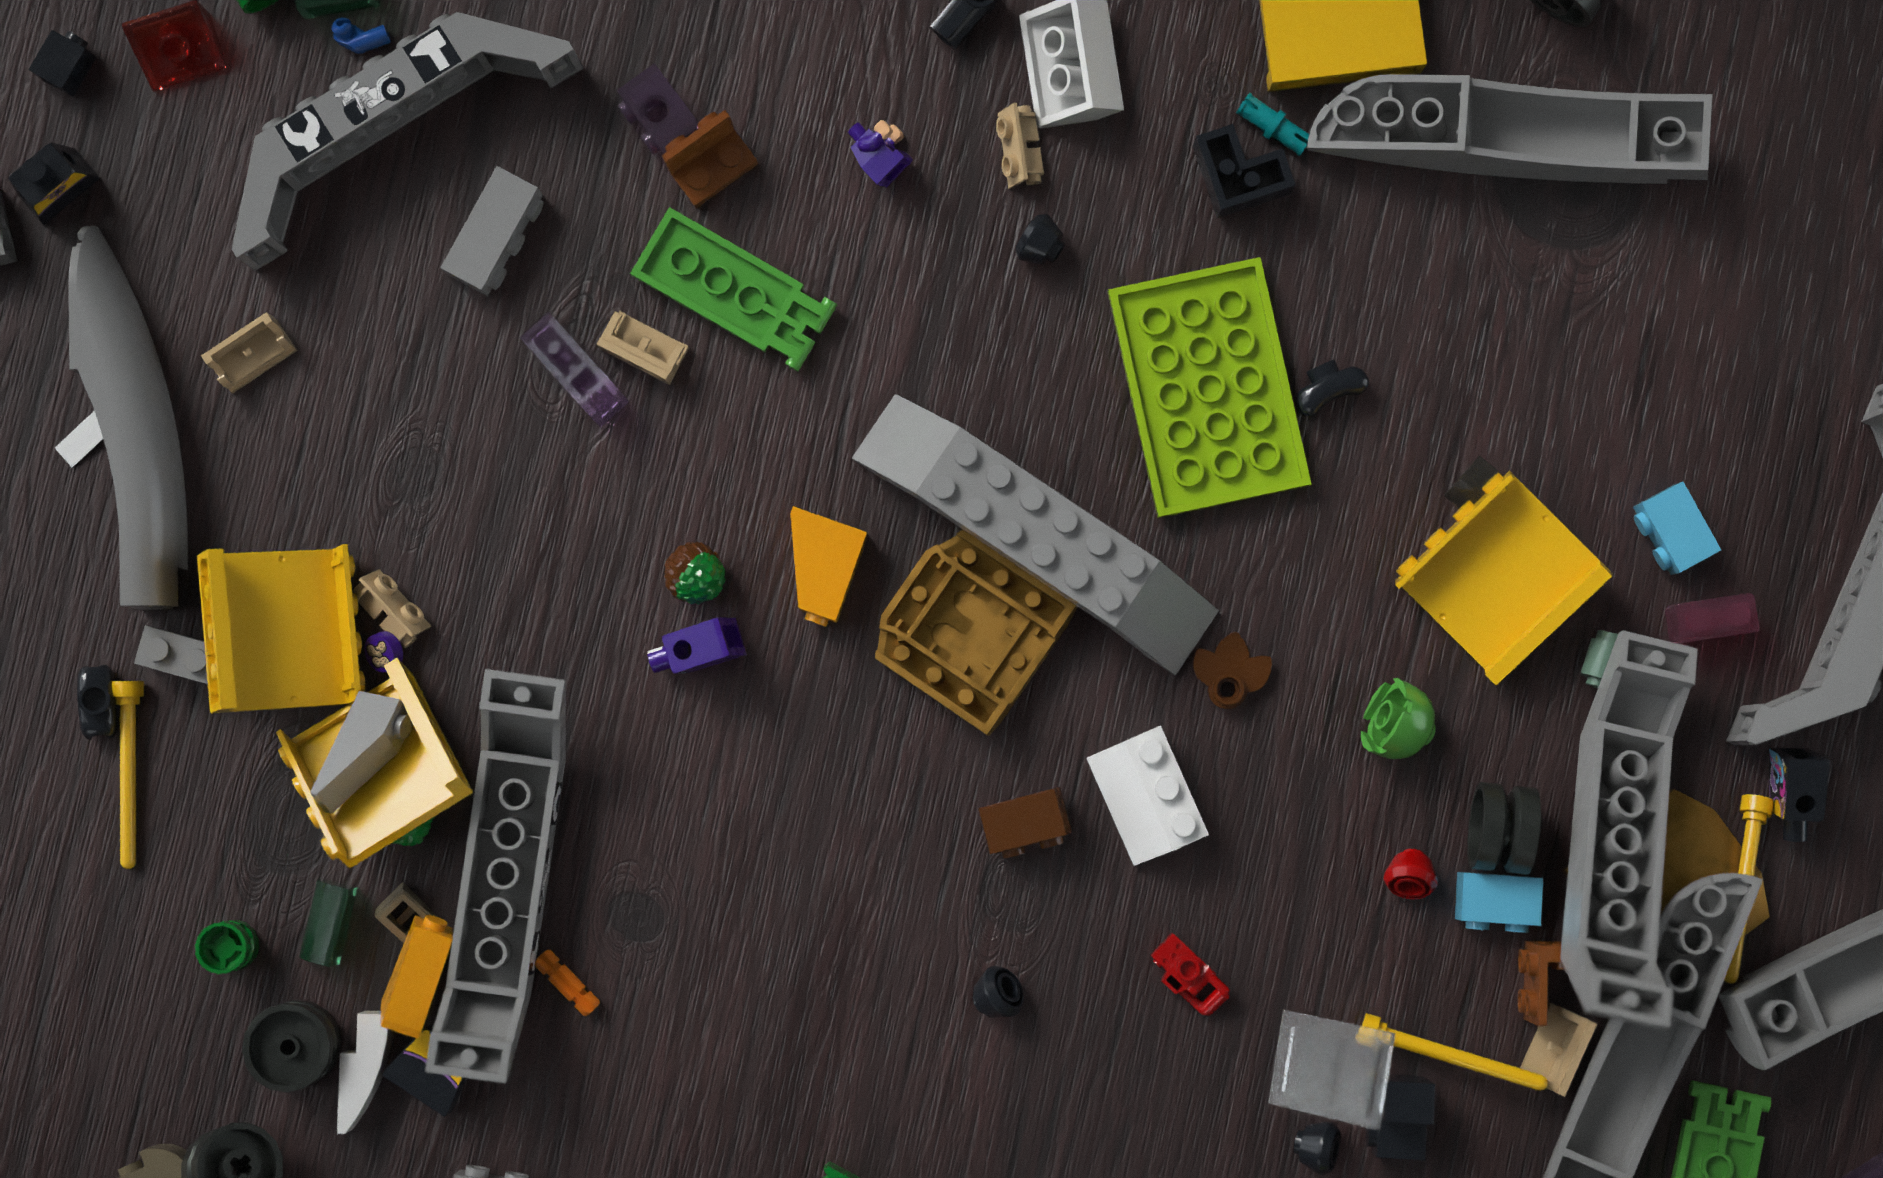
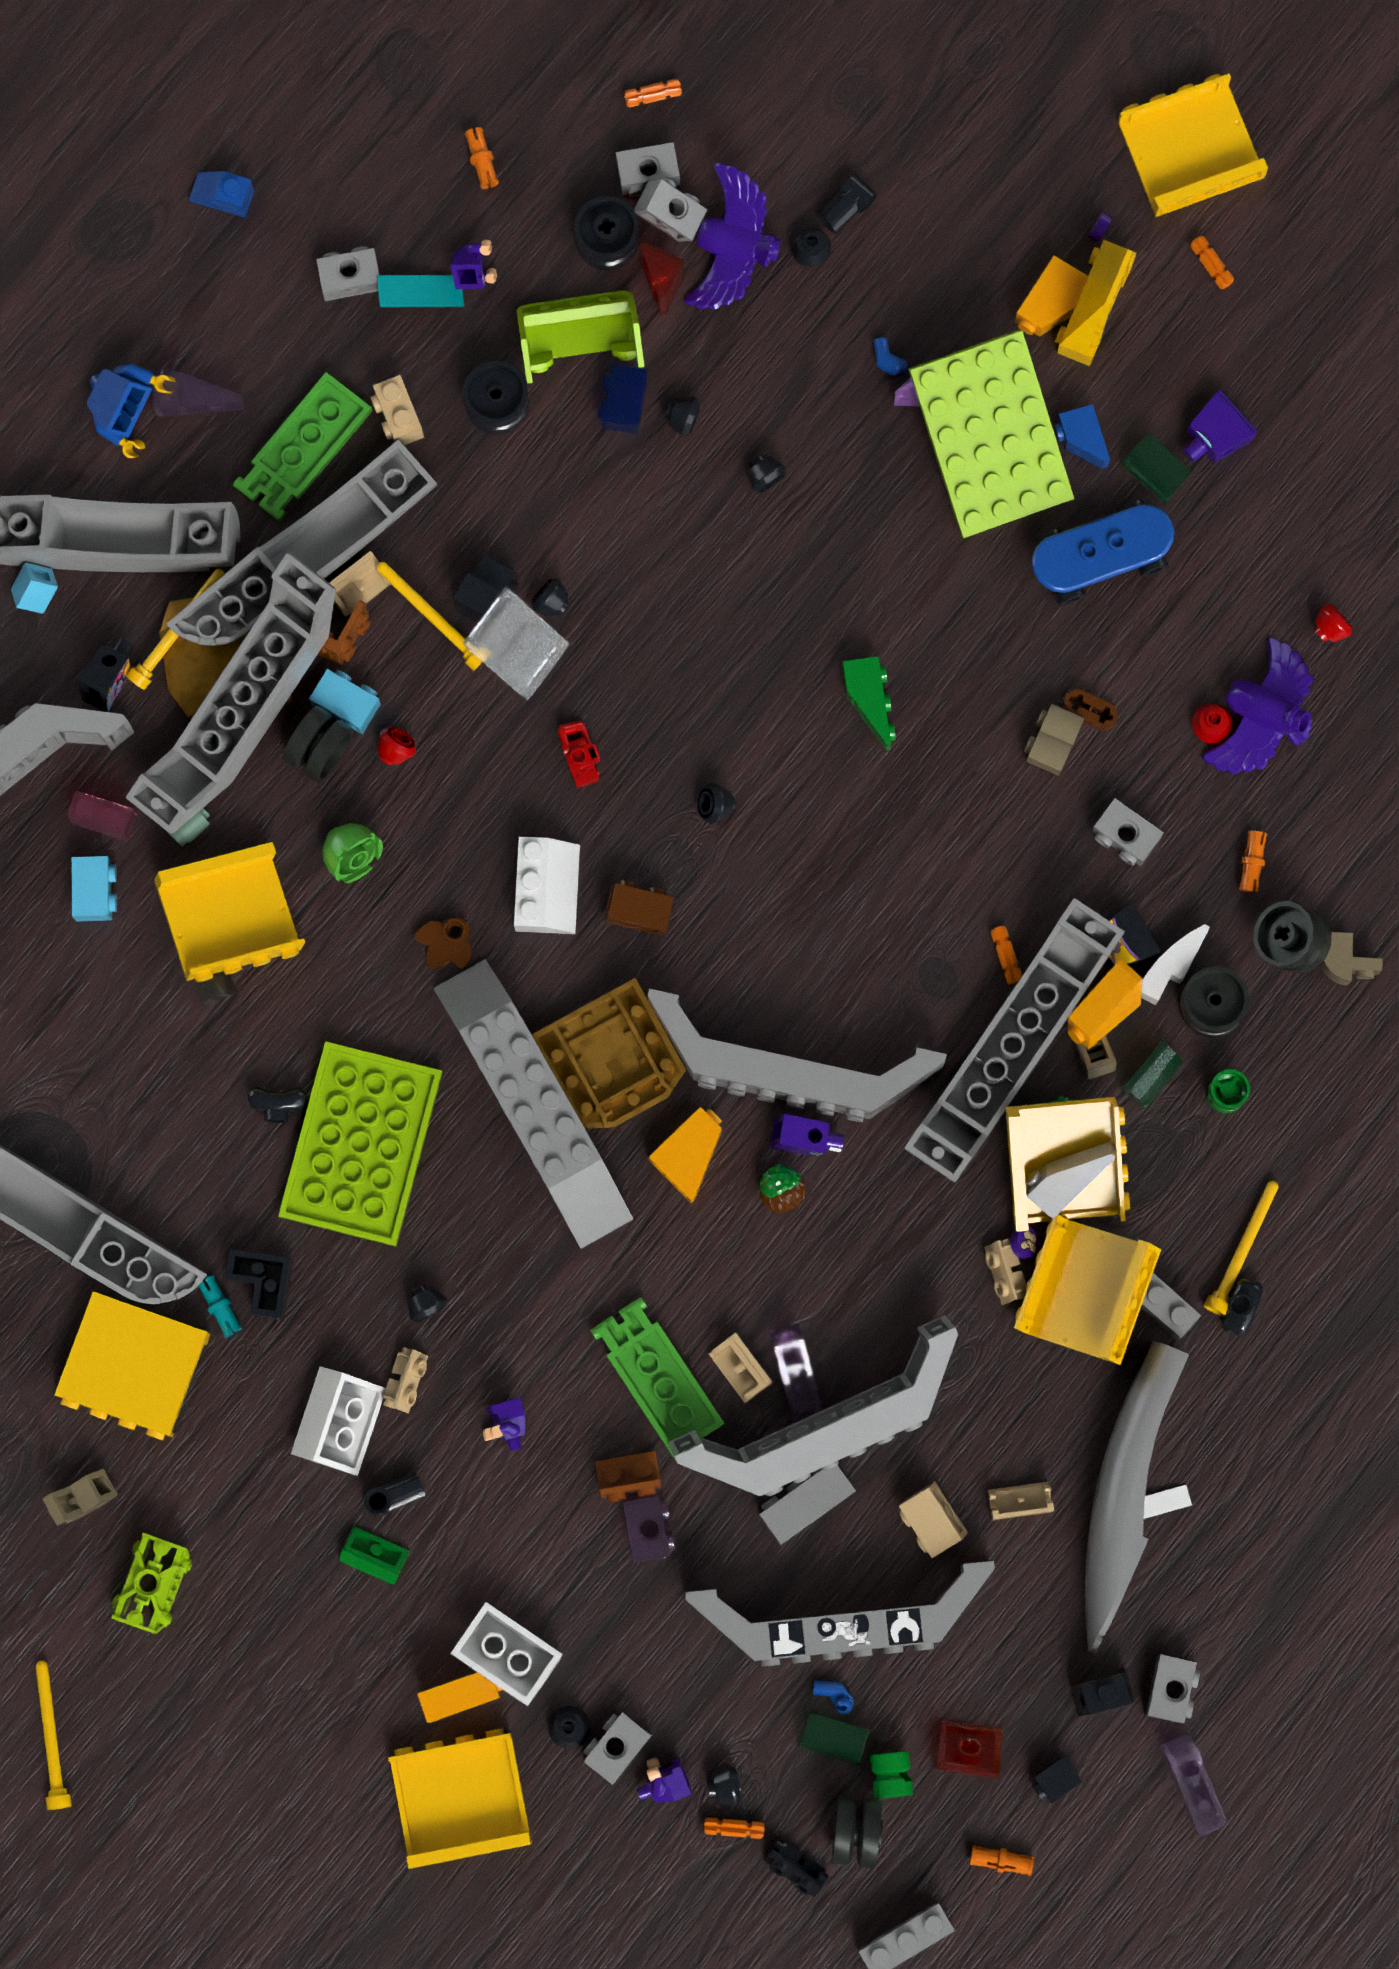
camera: 155 degrees left, 5 degrees down
(338, 280) = (932, 1520): none -> tan brick
(498, 320) = (833, 1432): none -> light grey slope
(746, 705) = (786, 1077): none -> light grey slope

